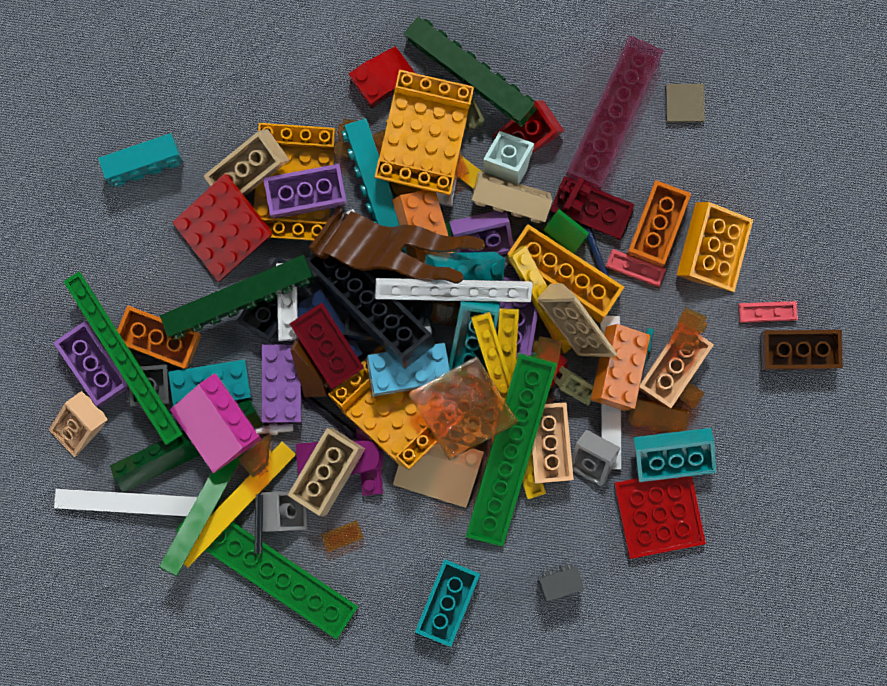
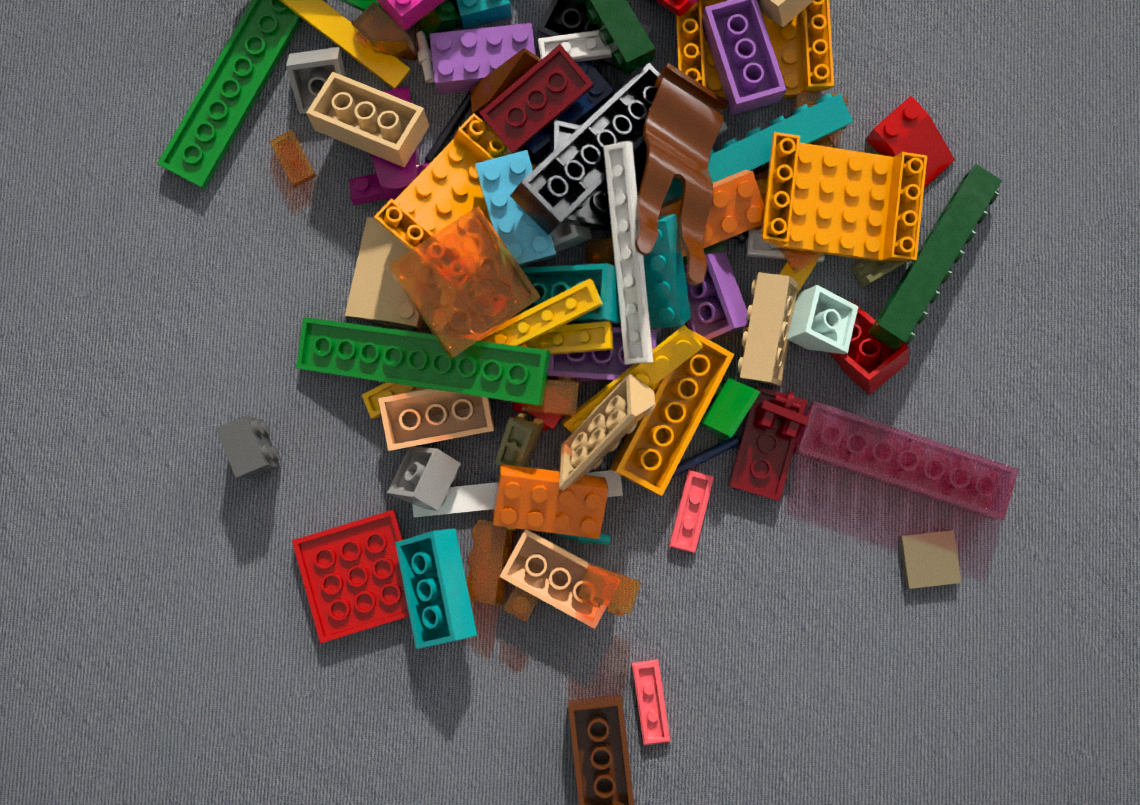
camera: 85 degrees right, 0 degrees up
(258, 523) = (297, 47): black bar -> none
(447, 602) = (213, 300): teal brick -> none
(658, 223) = (757, 536): orange brick -> none
(714, 246) = (734, 619): light orange slope -> none

